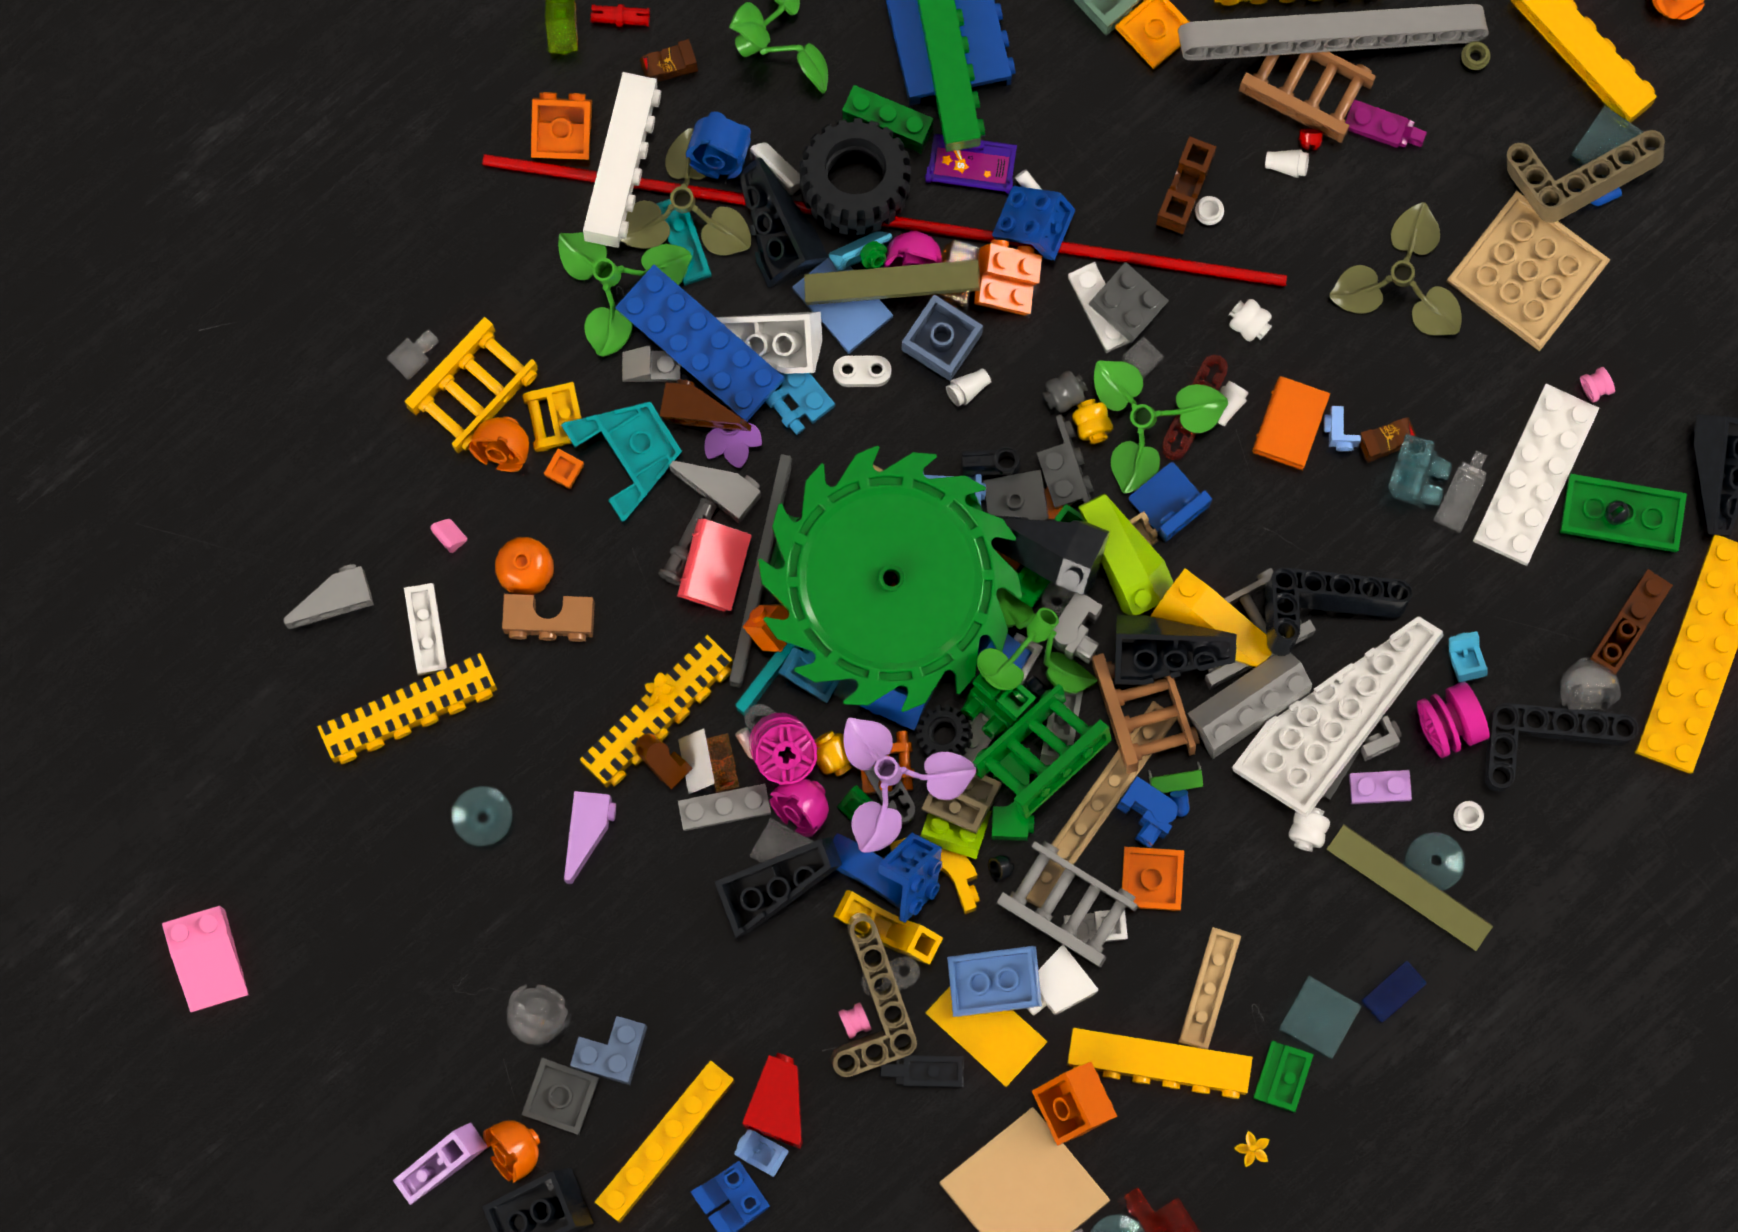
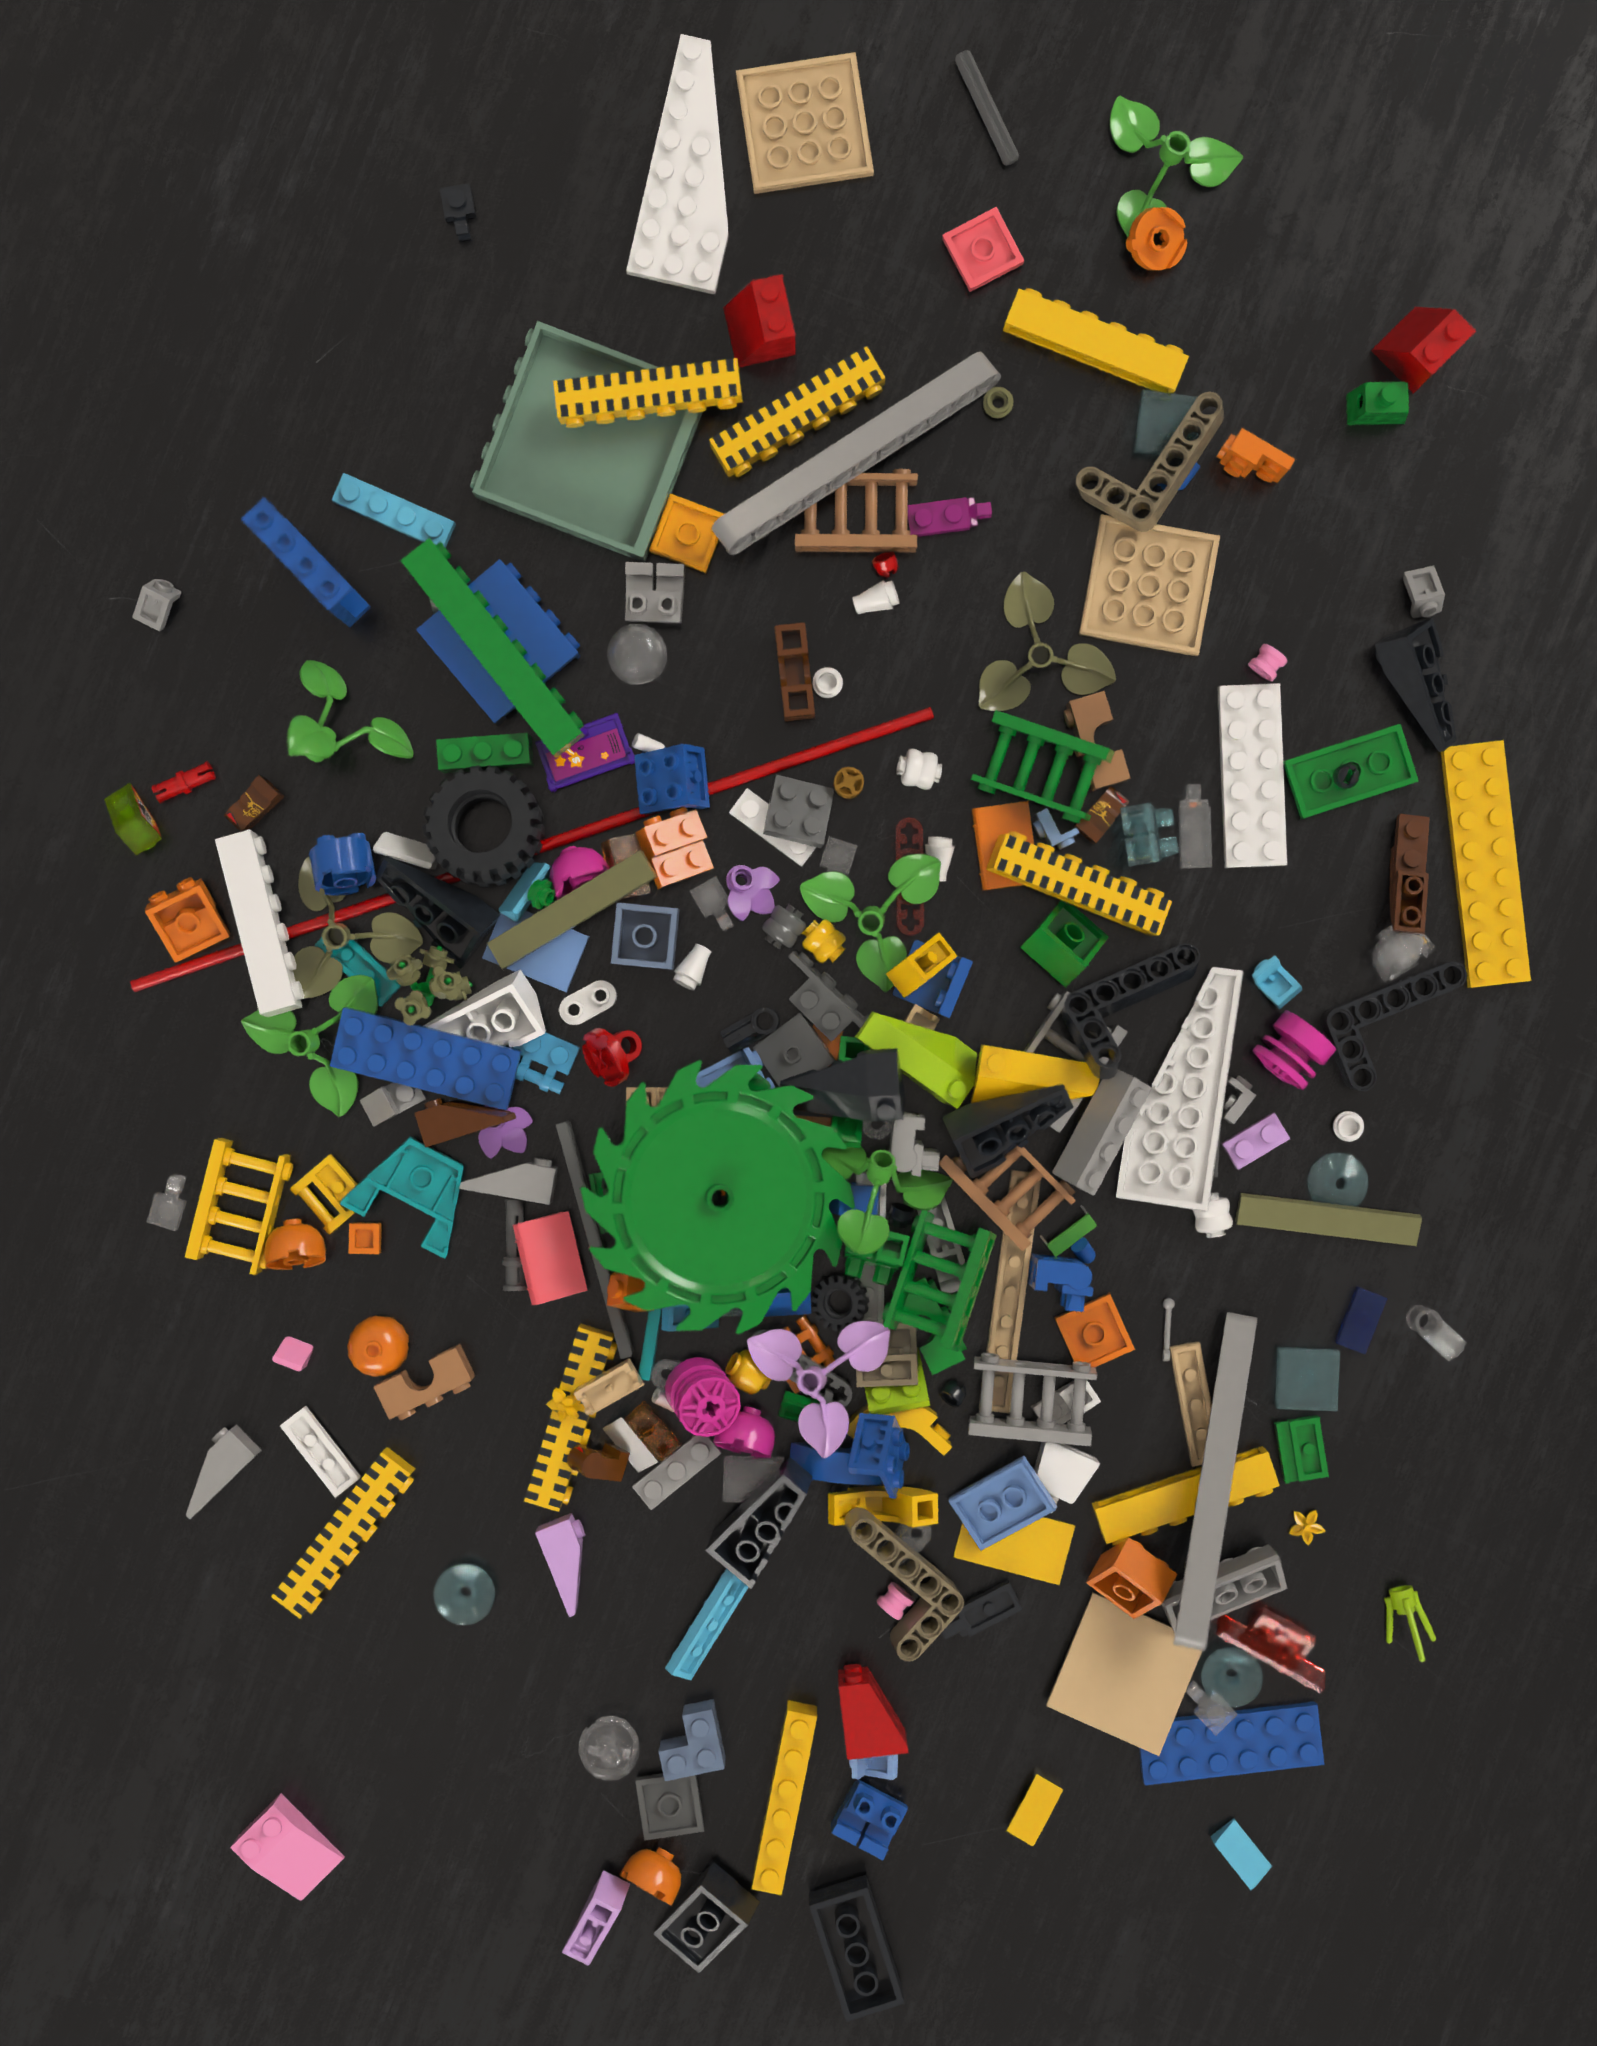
camera: 35 degrees left, 10 degrees up
(680, 954) = (707, 1626): none -> medium azure plate
(707, 696) = (609, 1387): none -> tan hinge
(746, 286) = (438, 983): none -> olive plant
(855, 420) = (606, 1056): none -> red tile
(1015, 340) = (712, 900): none -> clear plate
(1052, 353) = (754, 894): none -> medium lavender plate
(1059, 105) = (637, 654): none -> clear cylinder
(1095, 71) = (652, 605): none -> light grey hips
(1150, 1158) = (1237, 1583): none -> light grey slope
(1165, 482) = (921, 965): none -> yellow slope
(1184, 295) = (847, 778): none -> pearl gold wheel
(1192, 1050) = (1215, 1482): none -> light grey beam
(1230, 890) = (1168, 1304): none -> light grey hinge
(1300, 529) = (1064, 942): none -> green slope
(1338, 484) = (1078, 884): none -> yellow brick
(1365, 340) = (1065, 746): none -> green fence
(1418, 350) = (1085, 716): none -> medium nougat arch
(1456, 1038) = (1436, 1332): none -> clear piece
(1666, 200) = (1249, 452): none -> orange plate

